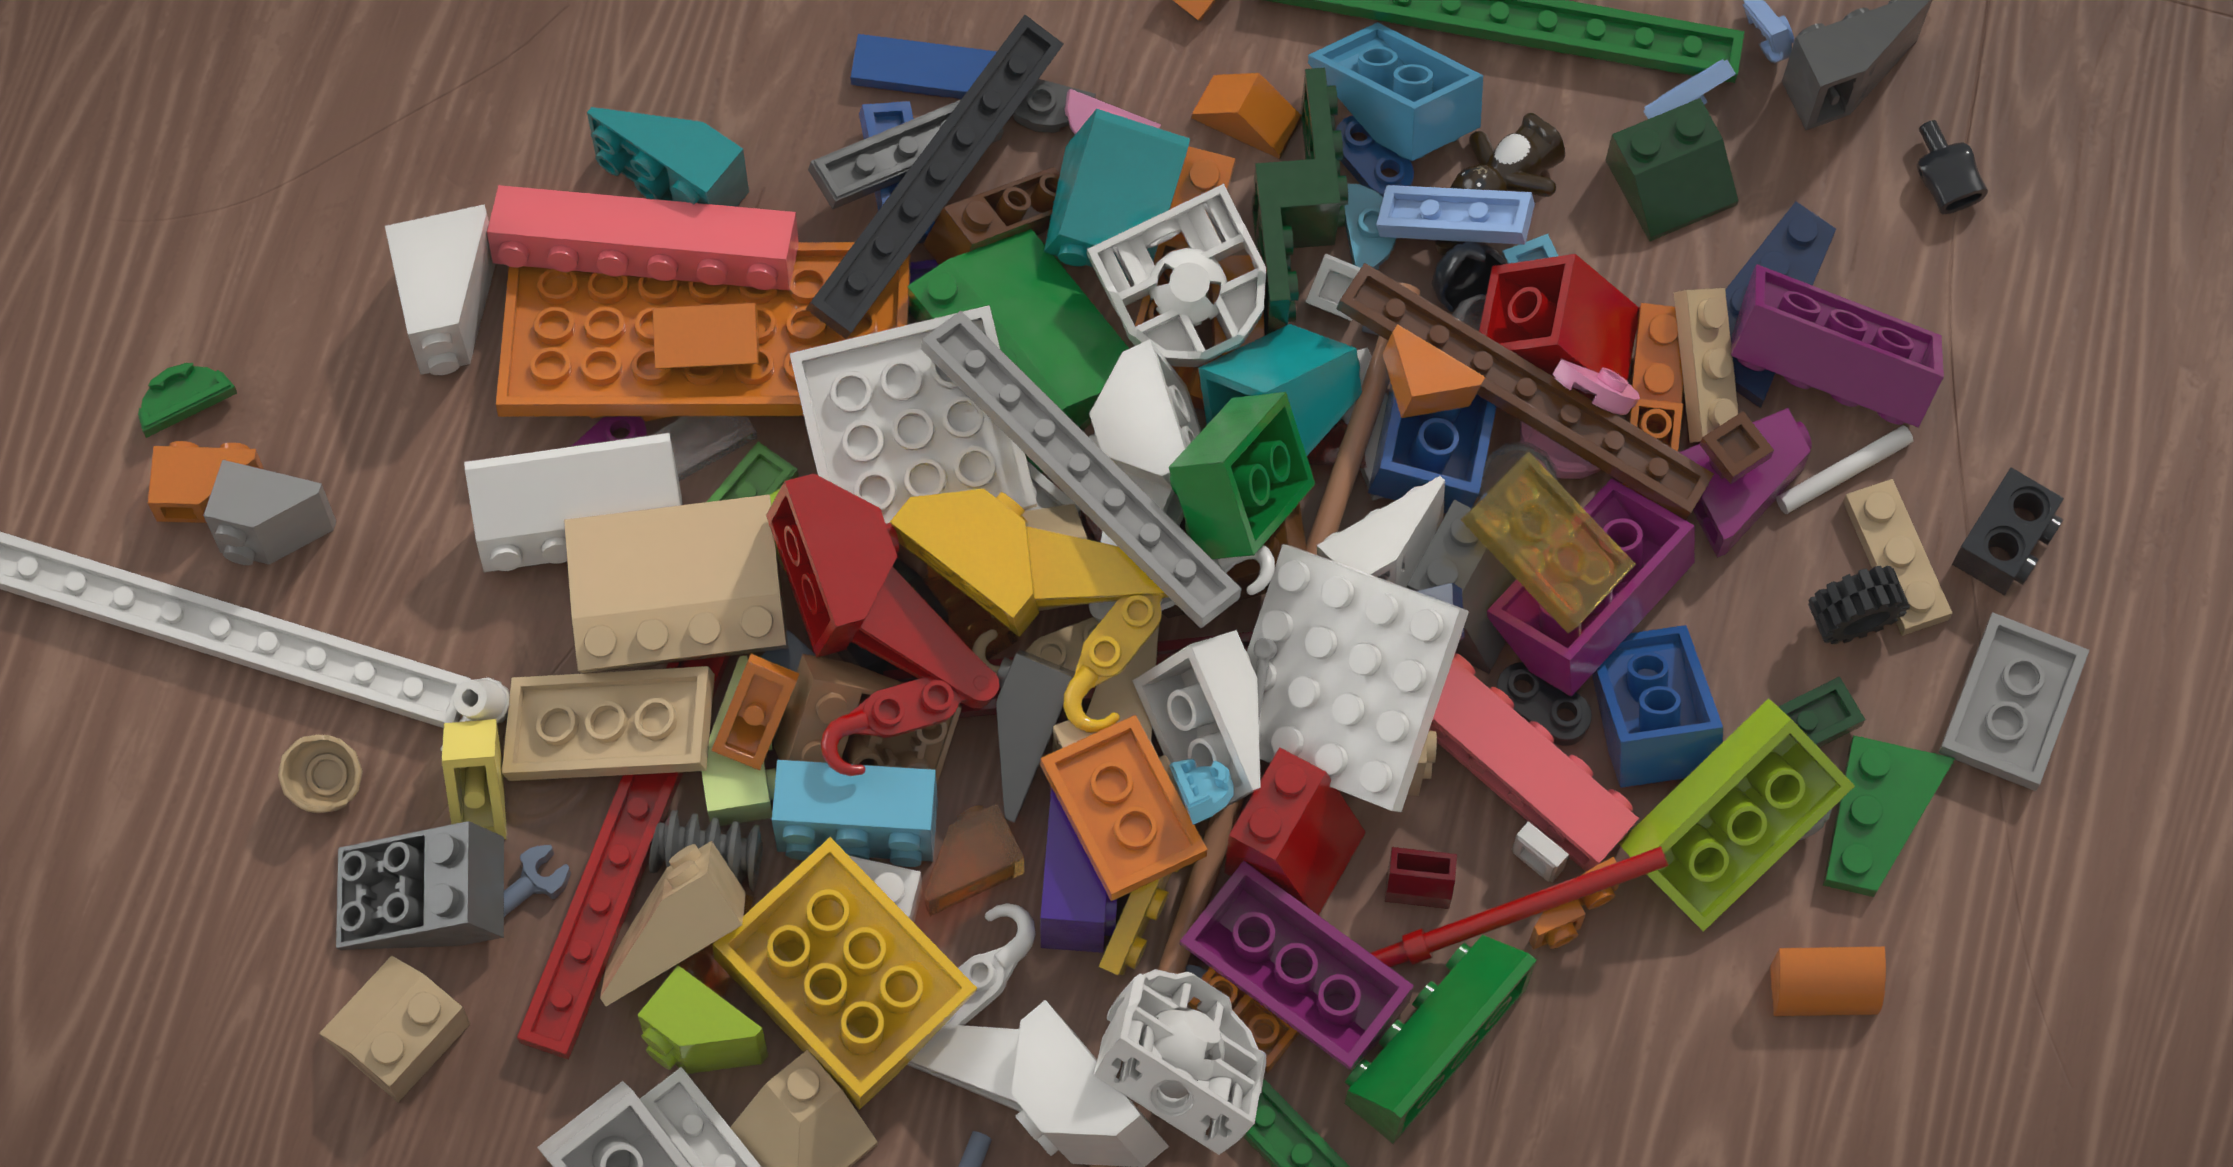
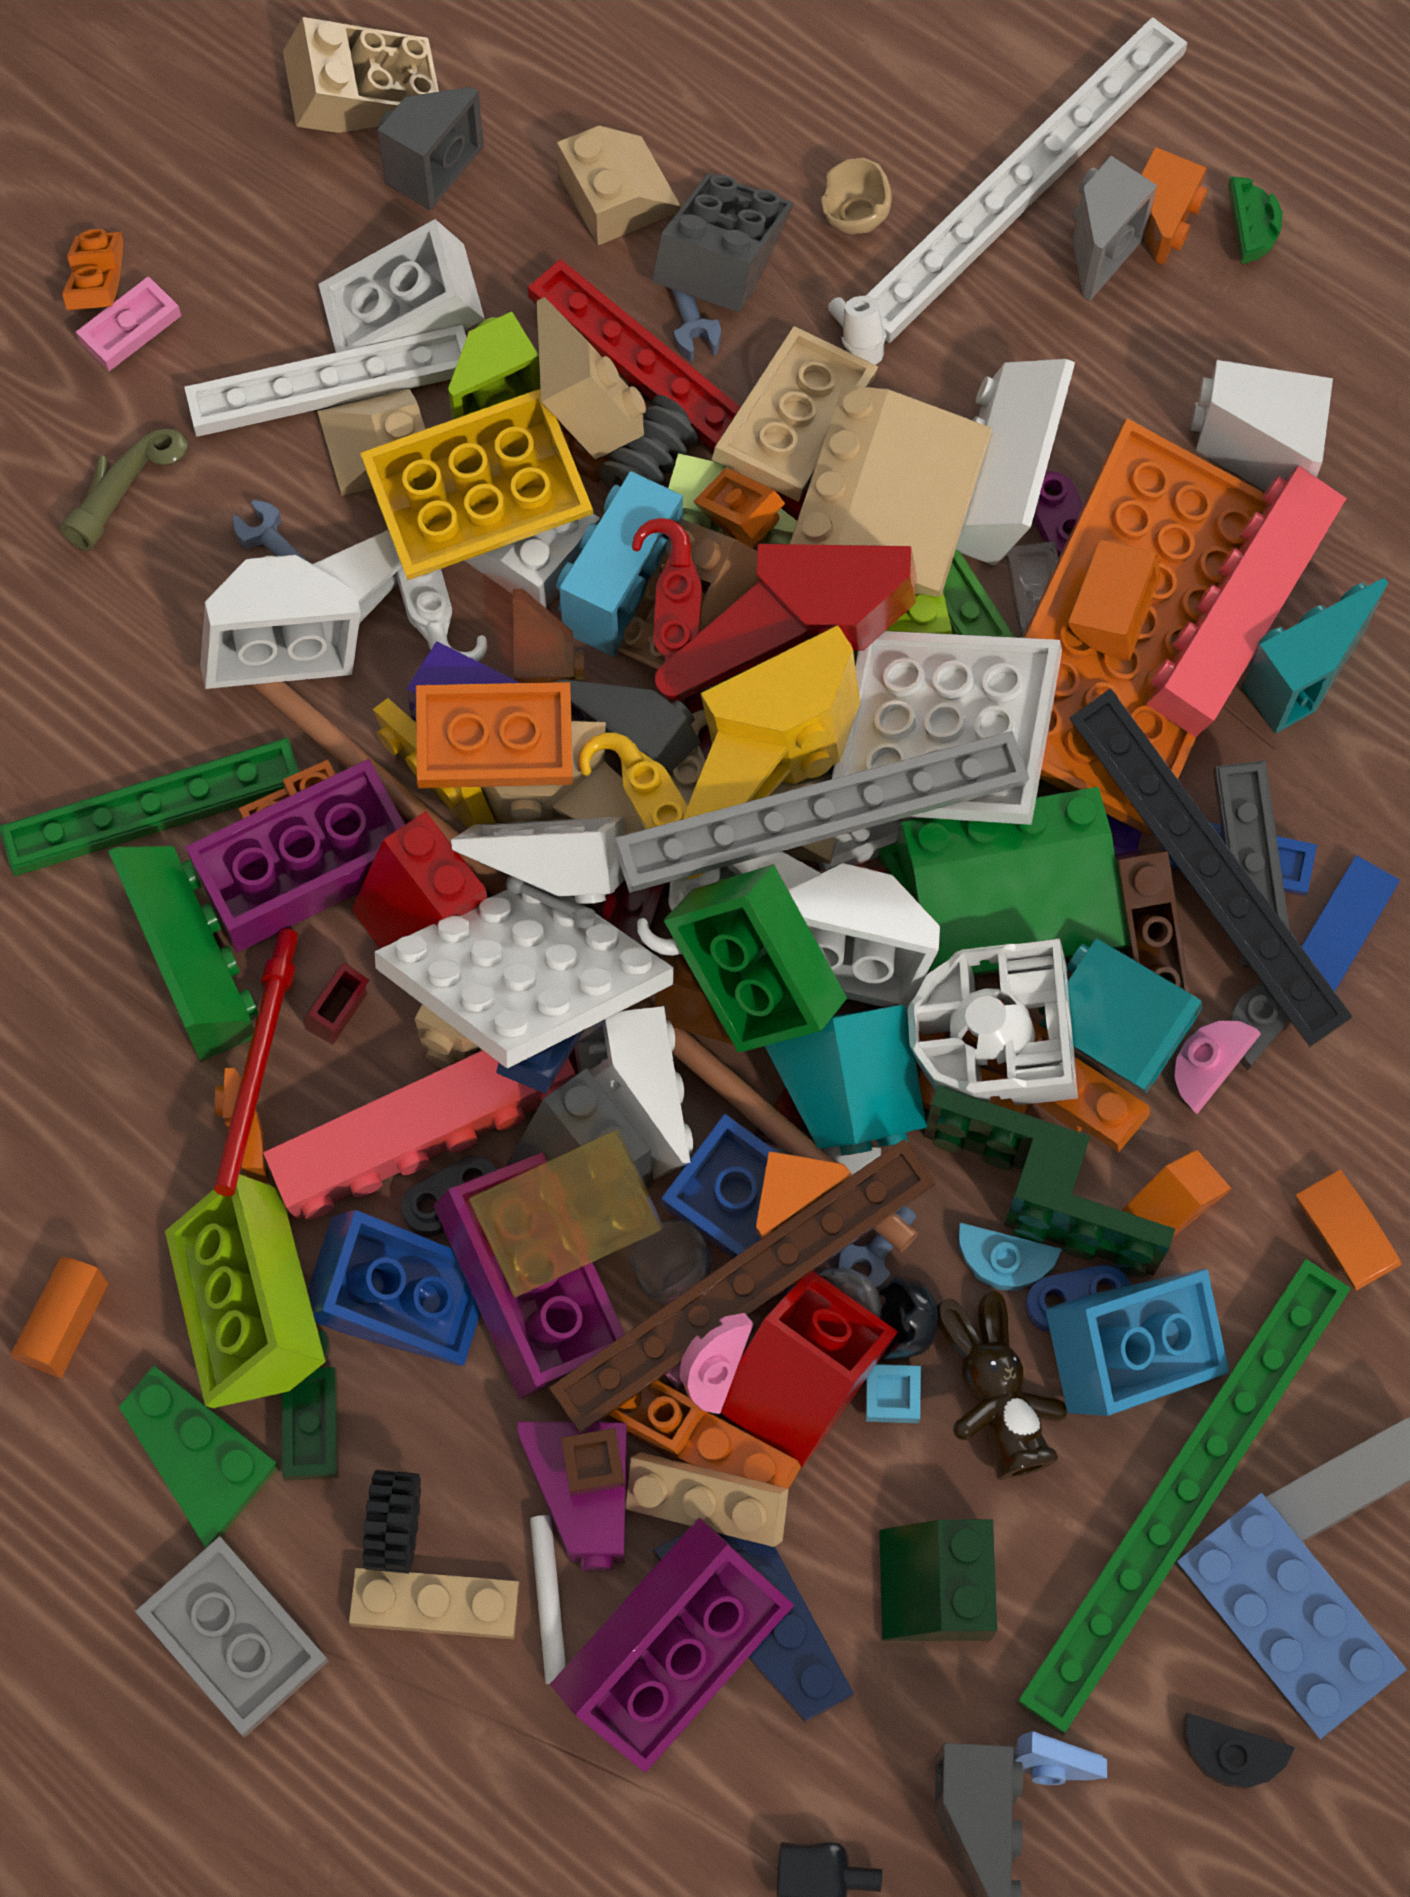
camera: 115 degrees right, 0 degrees up
(474, 774) = (798, 297): light yellow slope -> none
(1193, 1057) = (262, 687): white connector -> none
(1202, 788) = (473, 799): medium azure plate -> none
(1331, 283) = (952, 1196): white plate -> none
(1455, 214) = (967, 1322): light blue plate -> none
(1539, 852) = (307, 1115): white tile -> none
(1691, 89) = (1016, 1632): light blue plate -> none
(2004, 529) = (411, 1716): black brick -> none

